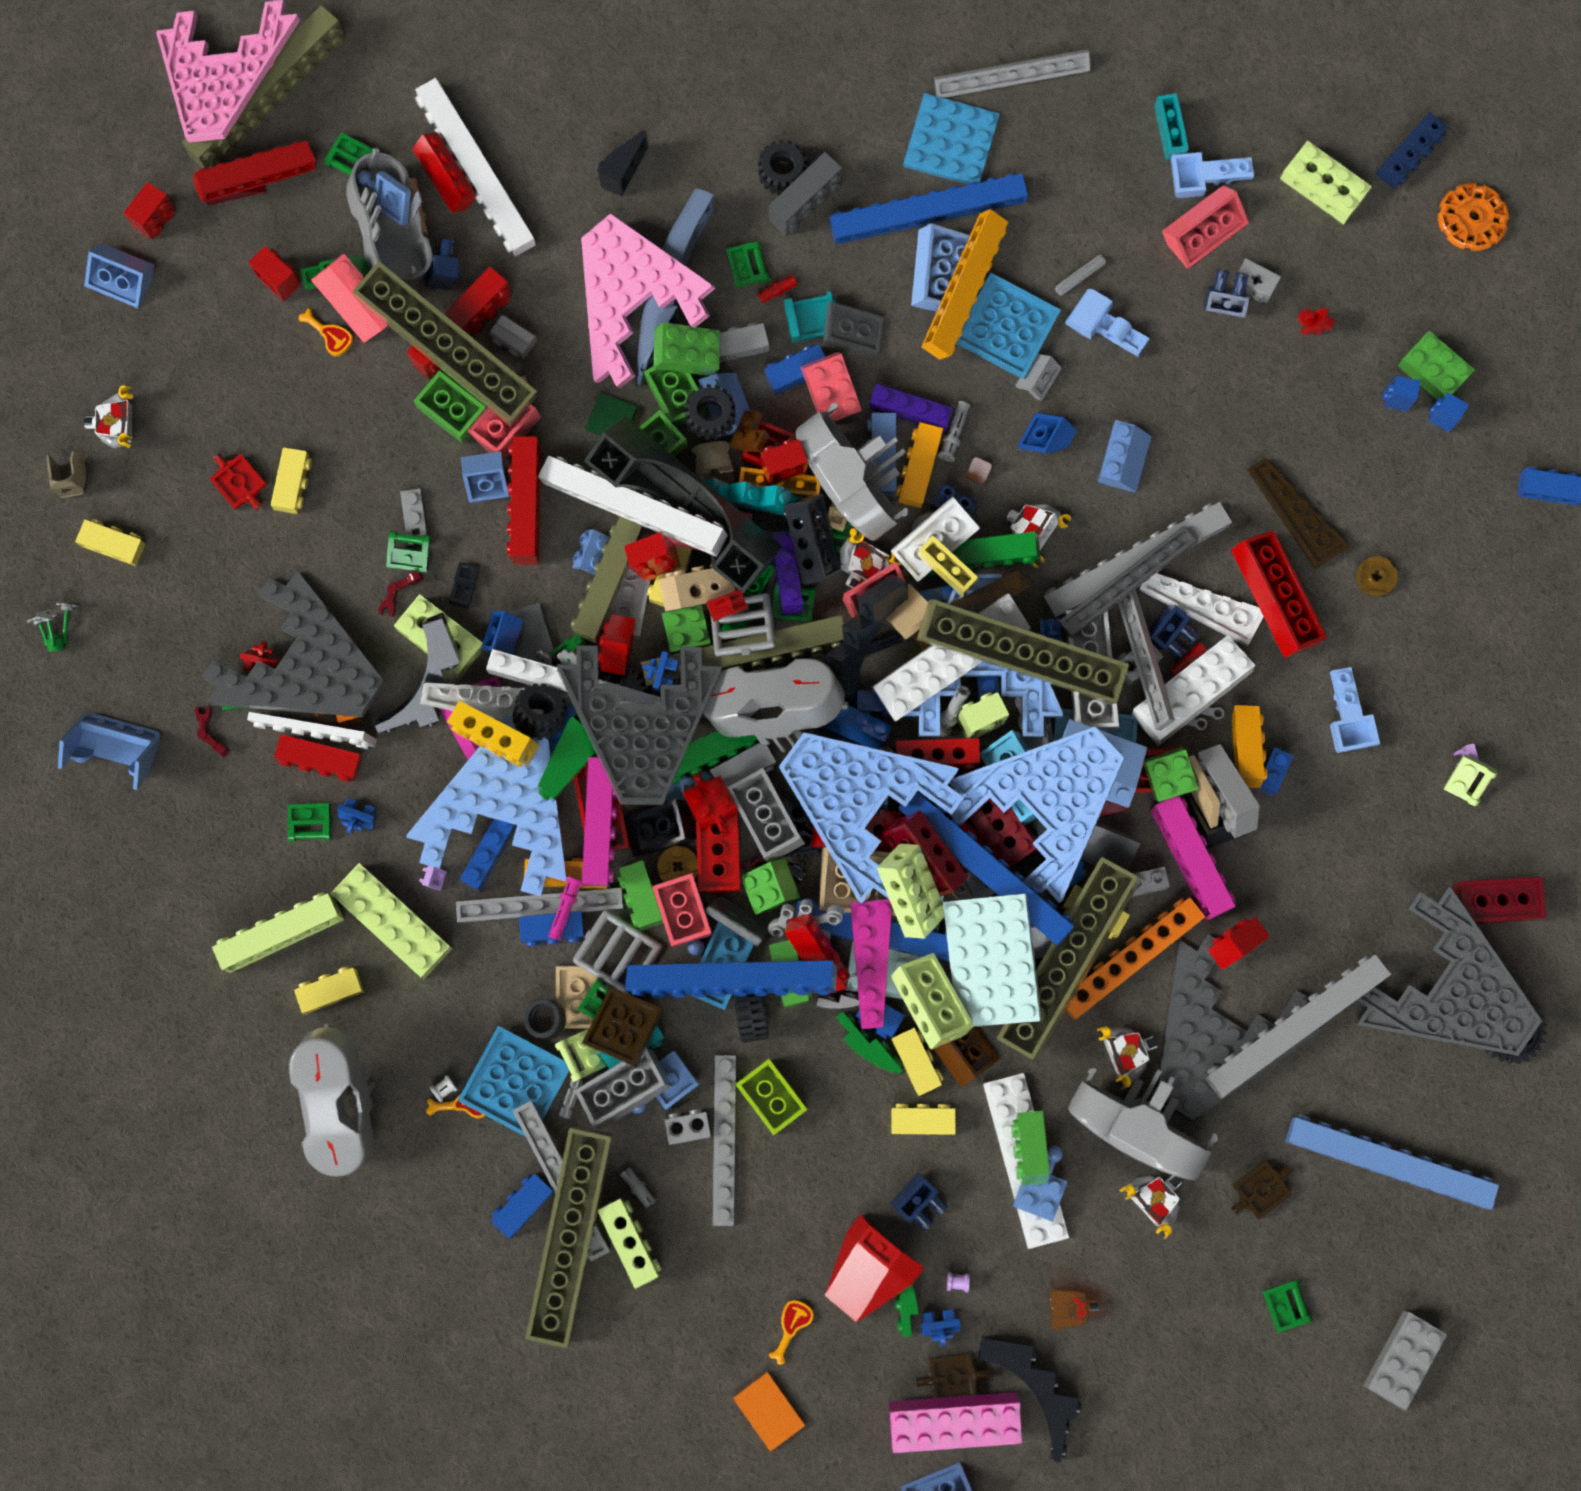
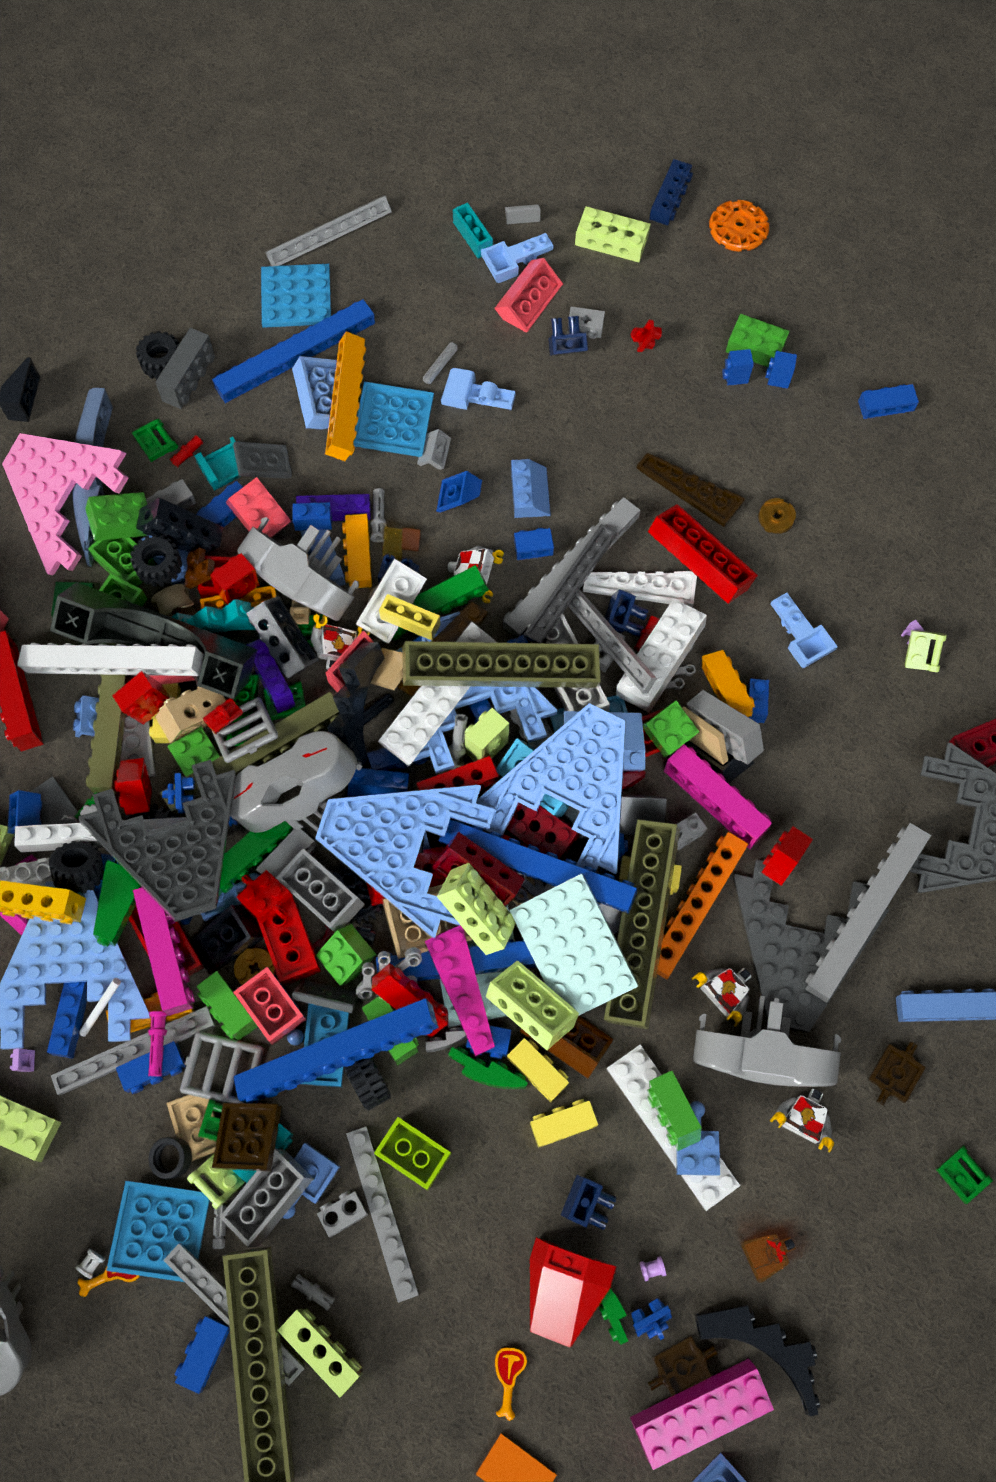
camera: 20 degrees left, 10 degrees down
(521, 854) = (99, 1007): none -> white bar
(744, 383) = (180, 525): none -> black brick
(885, 415) = (314, 514): none -> blue brick
(958, 471) = (392, 542): none -> clear yellow tile
(1106, 519) = (533, 543): none -> blue brick
(1235, 121) = (522, 214): none -> light grey panel

